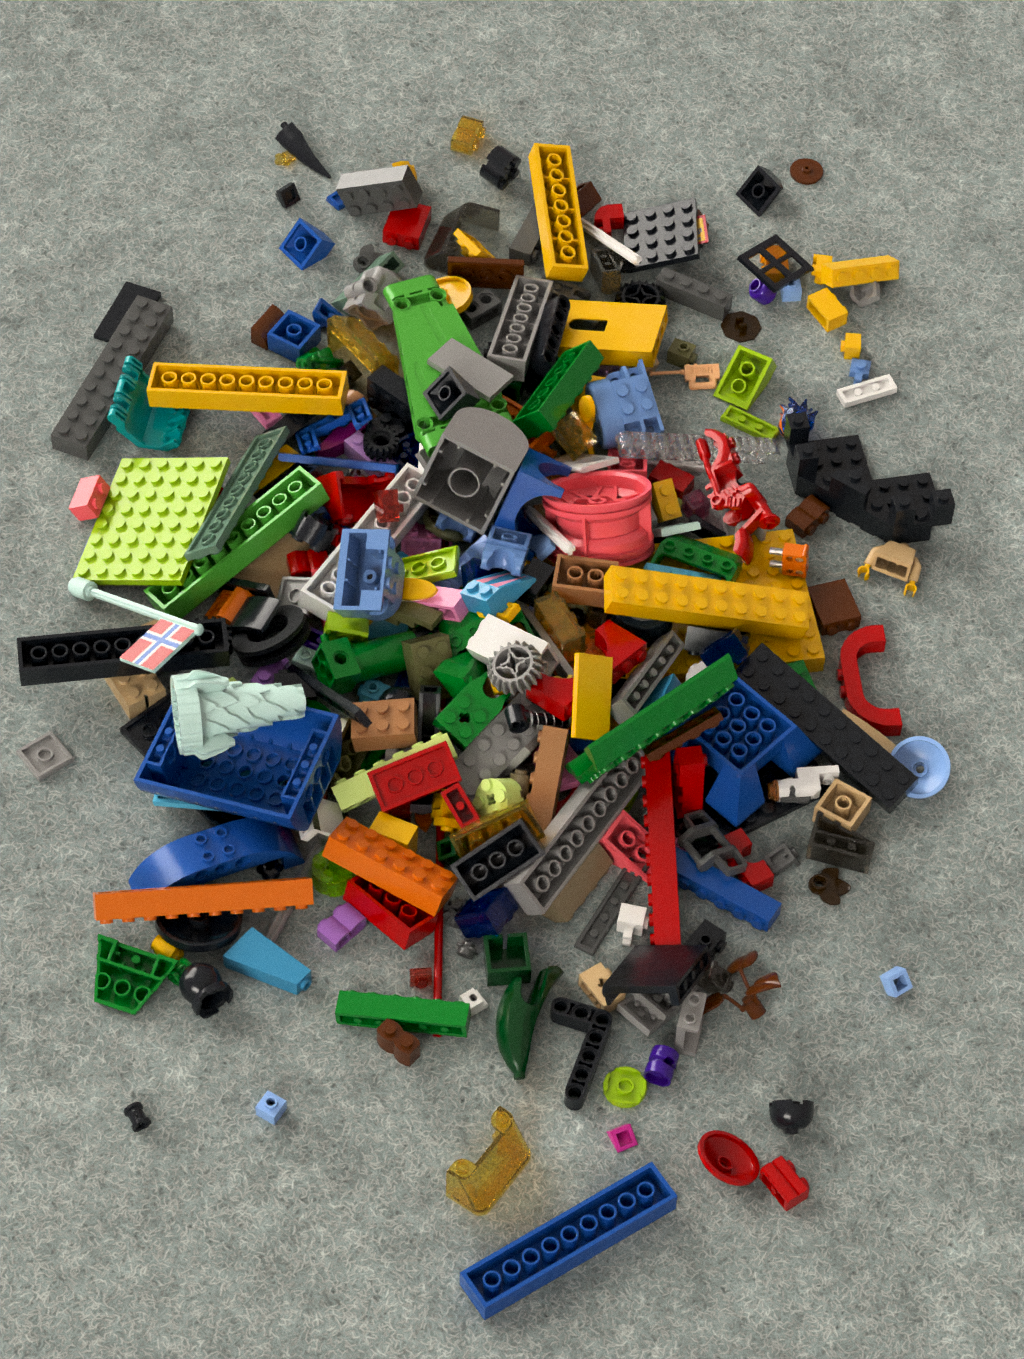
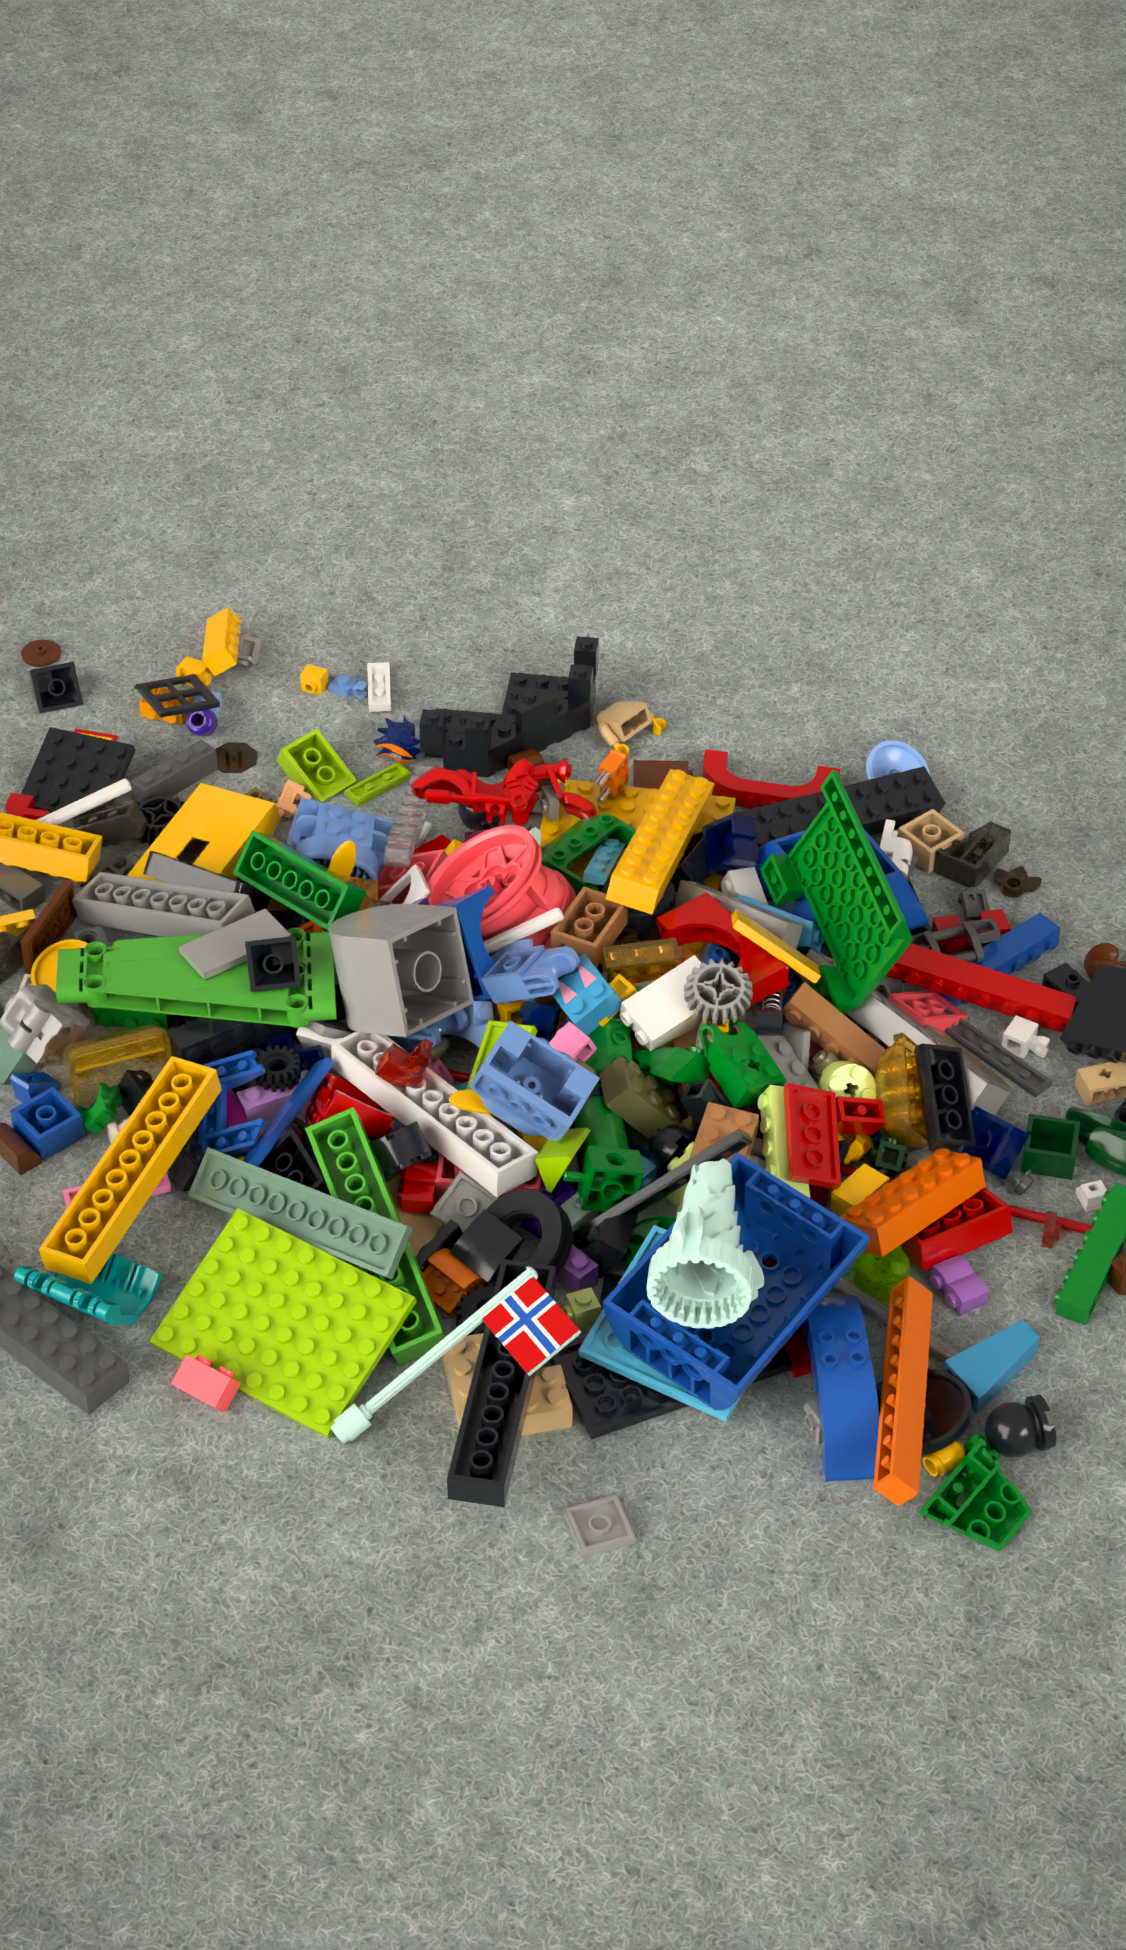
camera: 70 degrees left, 10 degrees down
(827, 309) = (253, 684): yellow brick -> none

